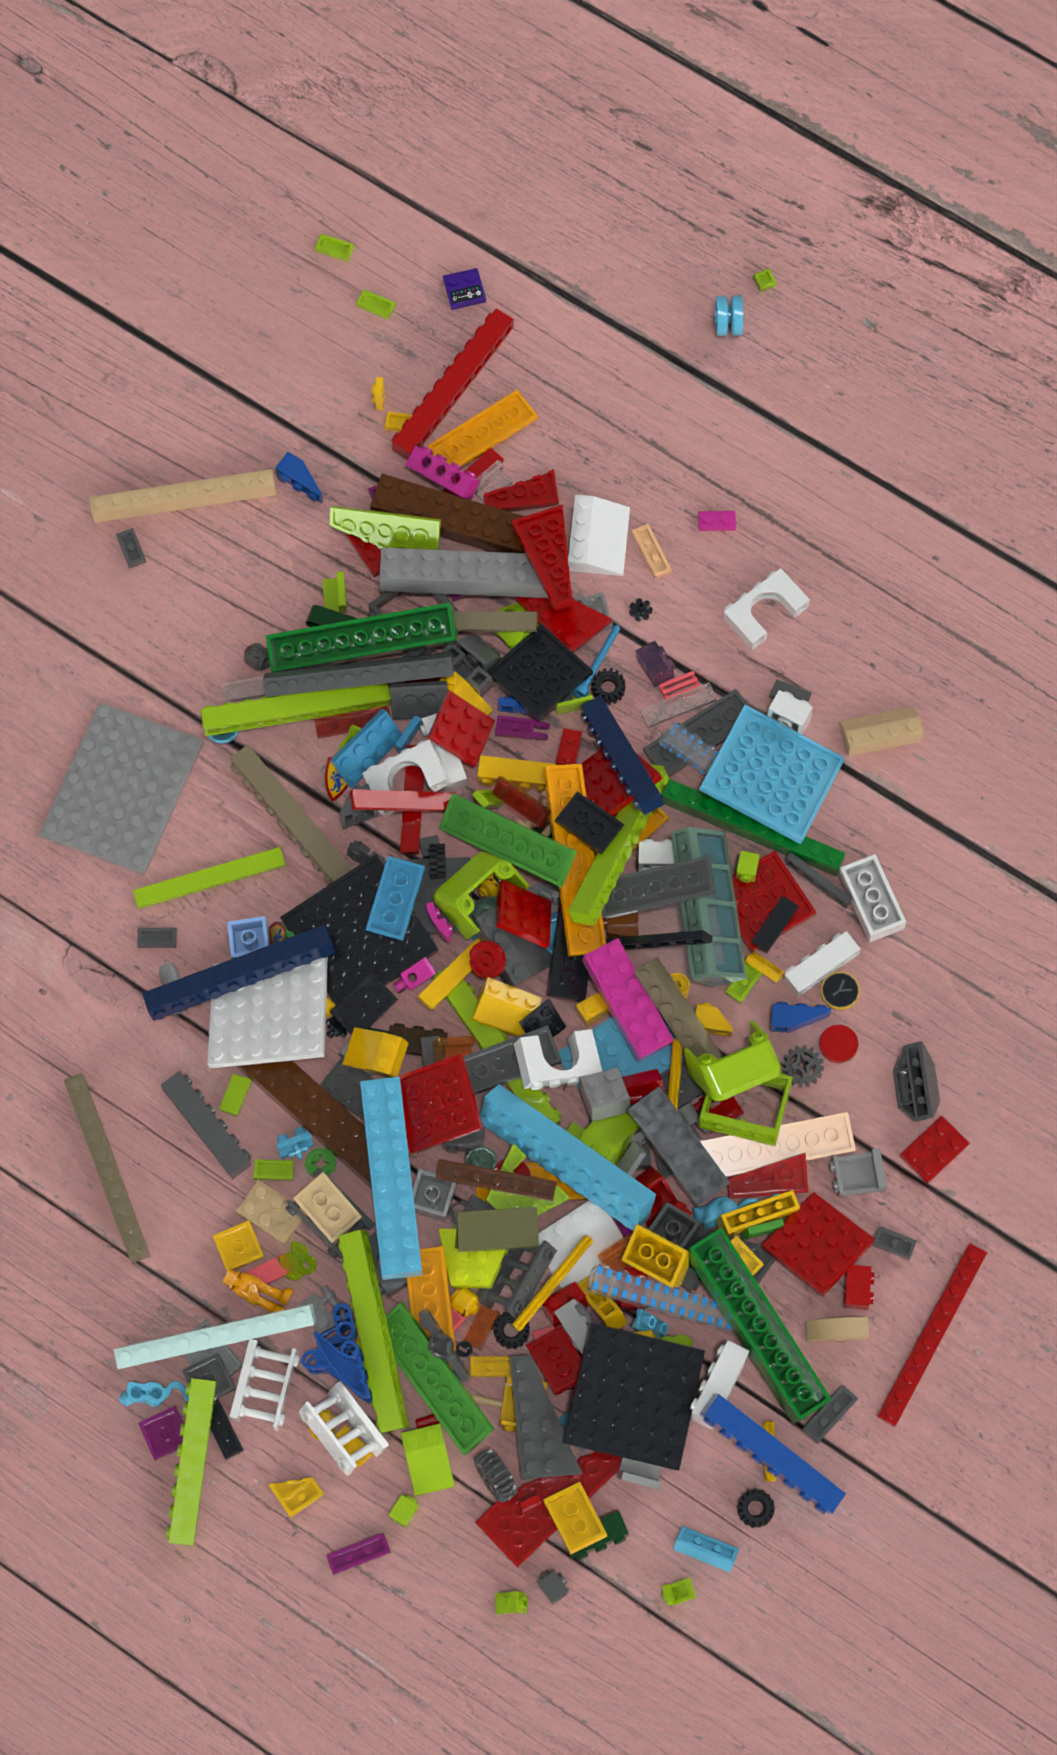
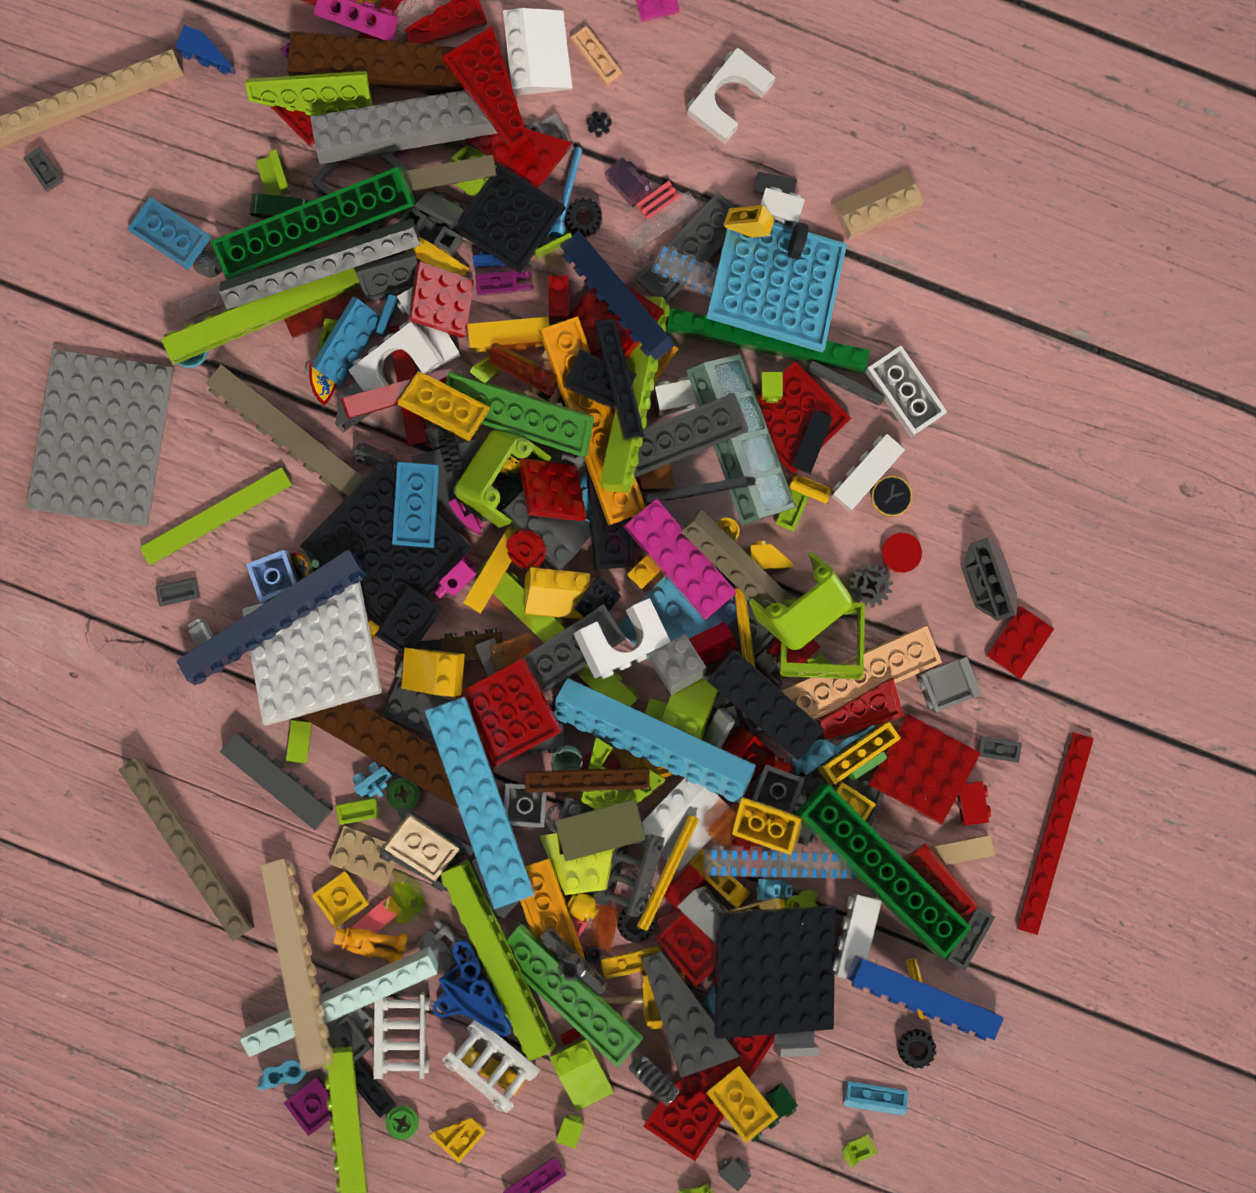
camera: 20 degrees left, 15 degrees up
(184, 1290) = (296, 965): none -> tan brick
(229, 623) = (169, 233): none -> dark azure plate
(245, 1458) = (392, 1123): none -> bright green gear
(335, 1028) = (384, 650): black plant -> none
(441, 819) = (443, 405): none -> yellow tile
(606, 824) = (619, 379): none -> black tile
(759, 716) = (750, 221): none -> yellow slope
(793, 1017) = (846, 537): blue slope -> none
(798, 741) = (797, 240): none -> black tyre
(813, 1350) = (941, 879): none -> red wing

